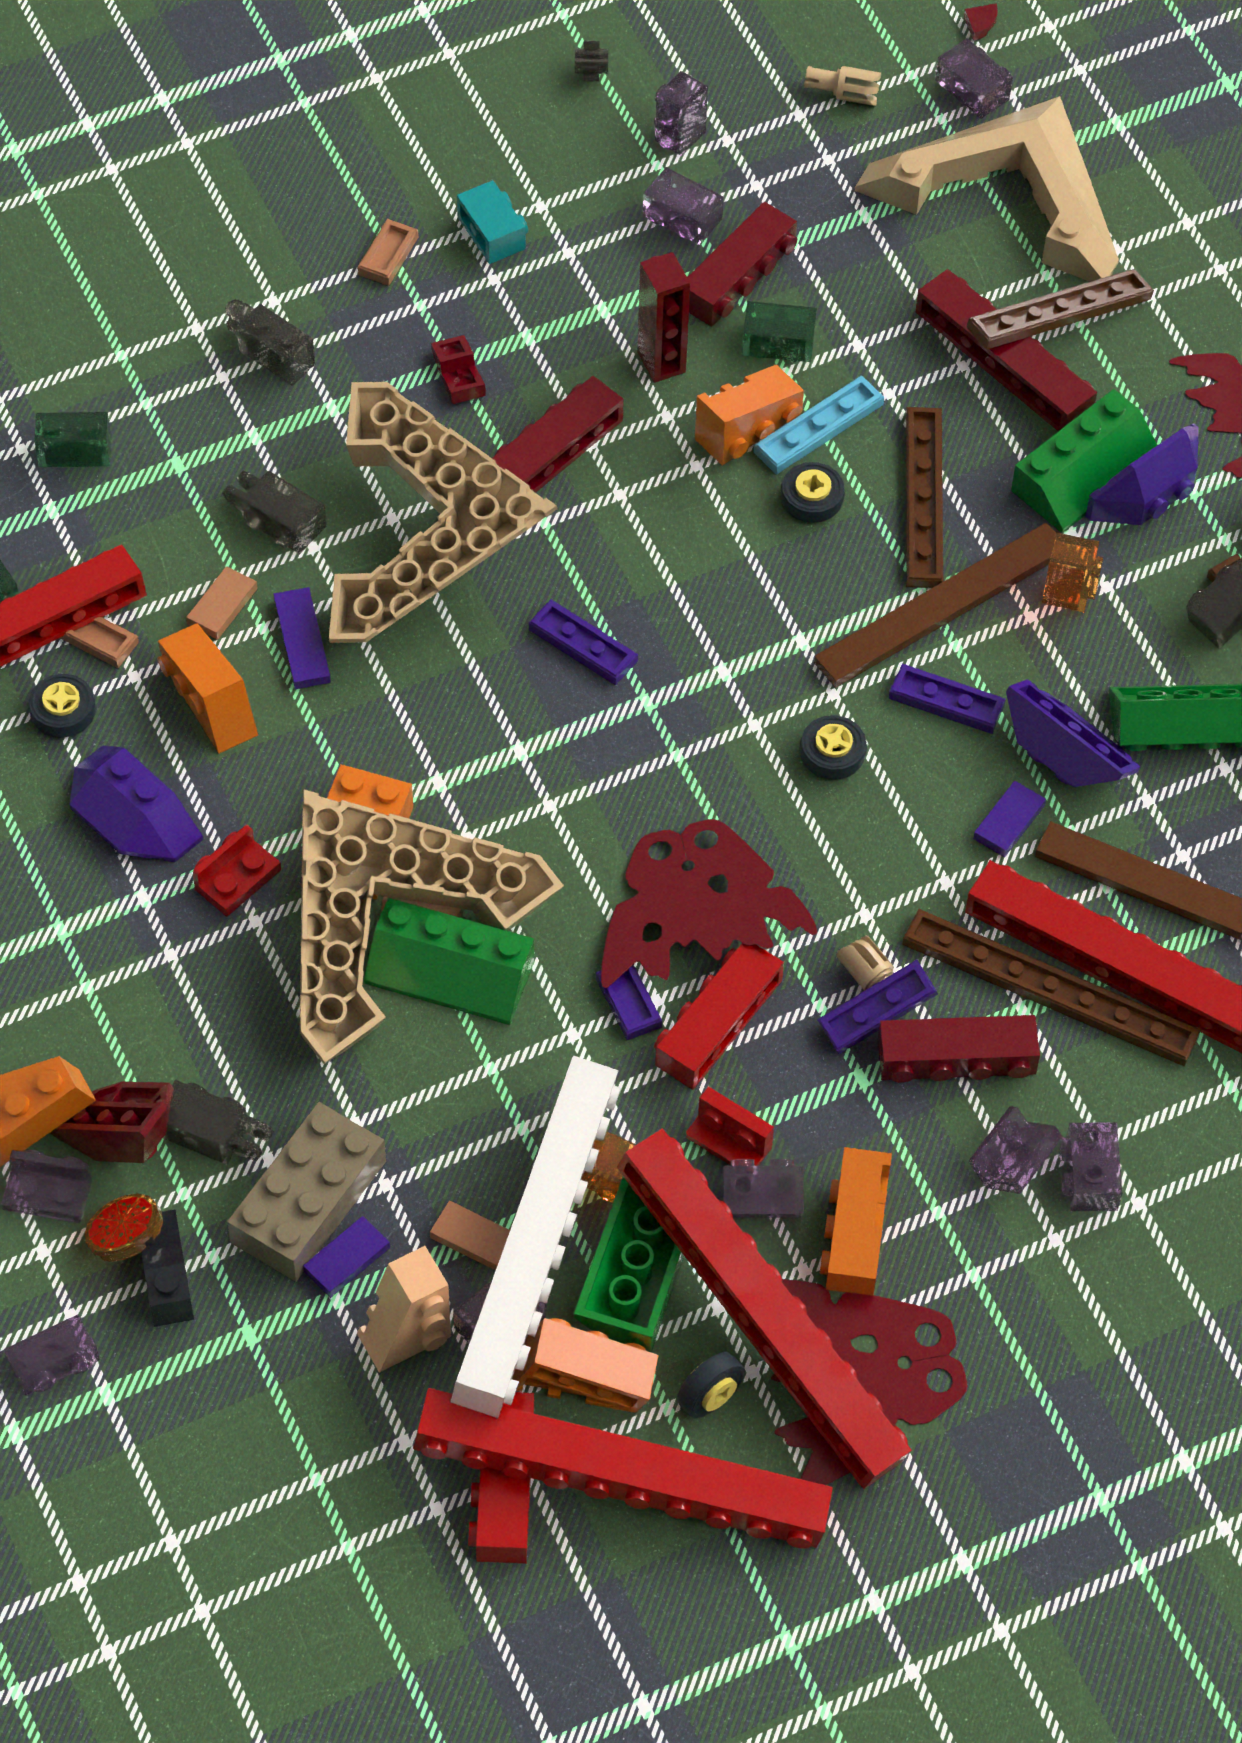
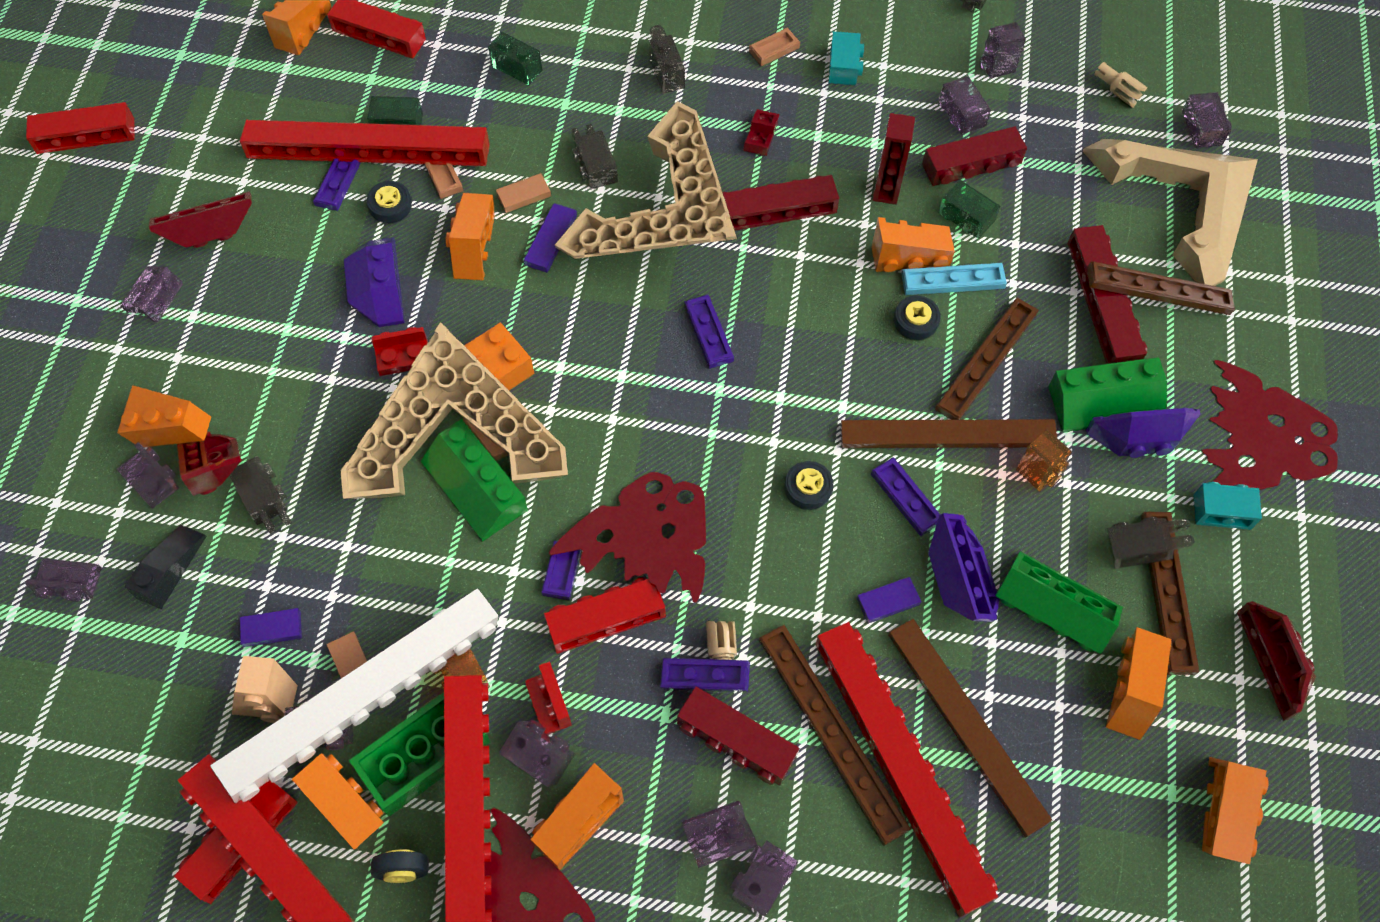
camera: 35 degrees right, 5 degrees up
(123, 1227) = (161, 526): tile -> none
(307, 1191) = (276, 572): dark tan brick -> none
(980, 20) = (1238, 89): dark red tile -> none

